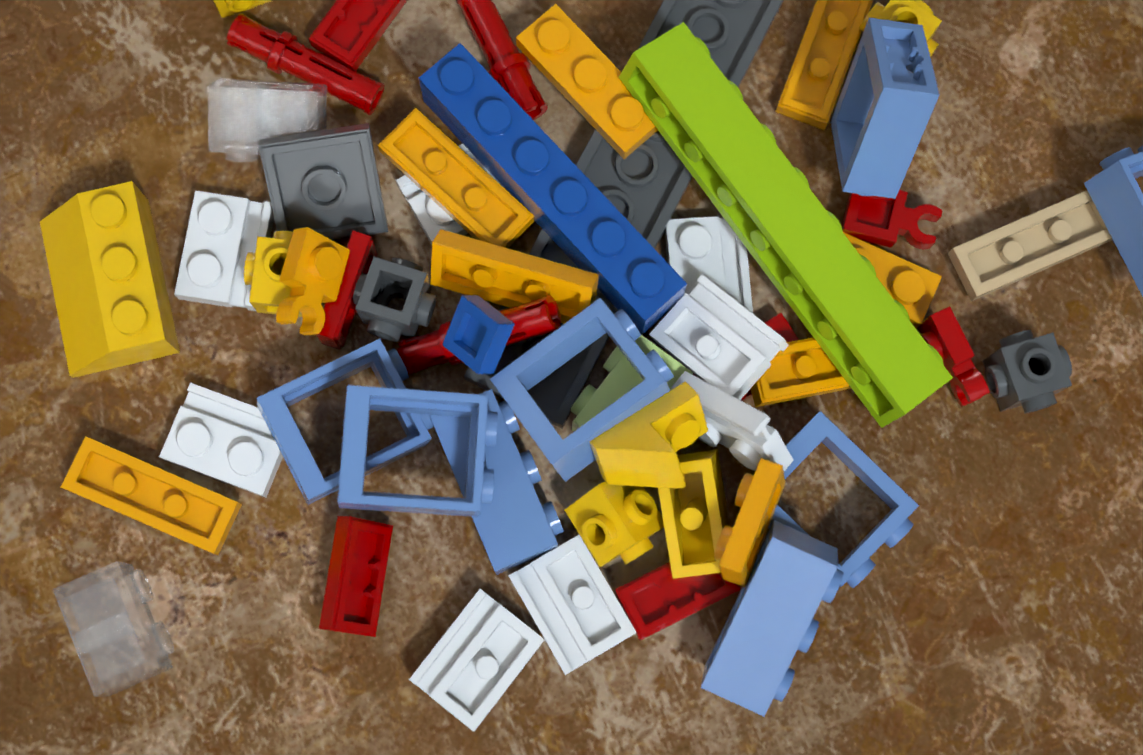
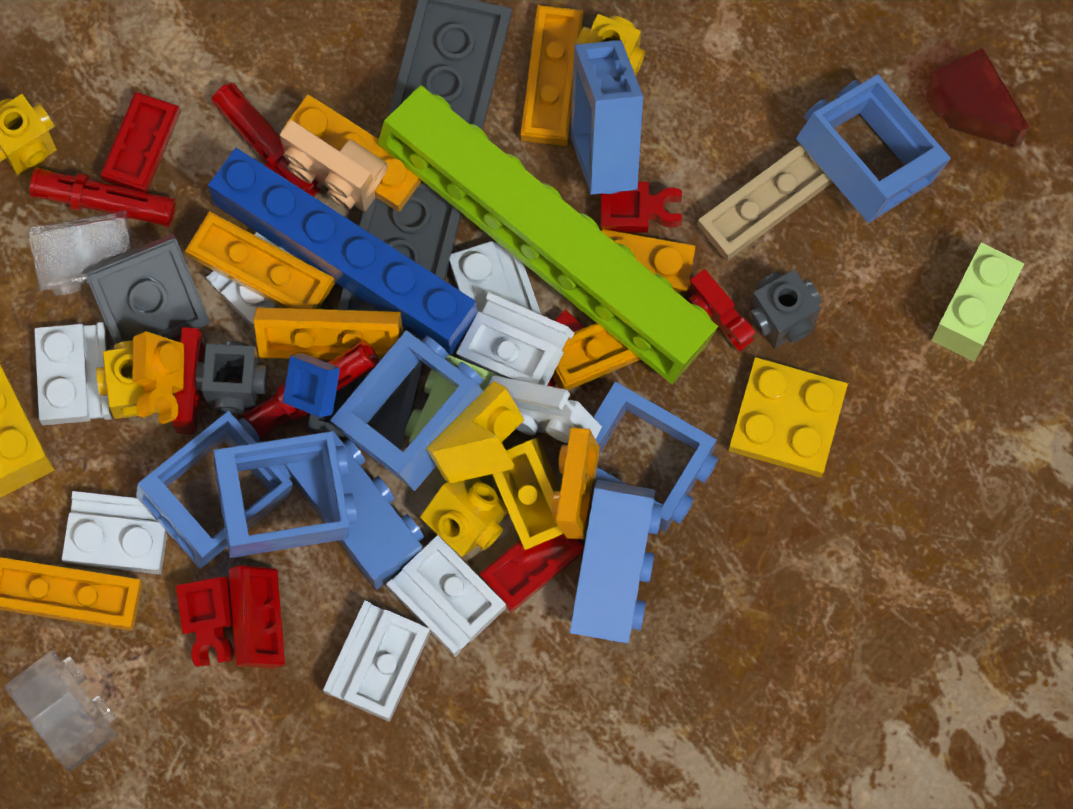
camera: 10 degrees left, 5 degrees down
(303, 557) = (206, 611): none -> red plate
(579, 102) = (347, 174): none -> light nougat plate
(1000, 494) = (788, 417): none -> yellow plate

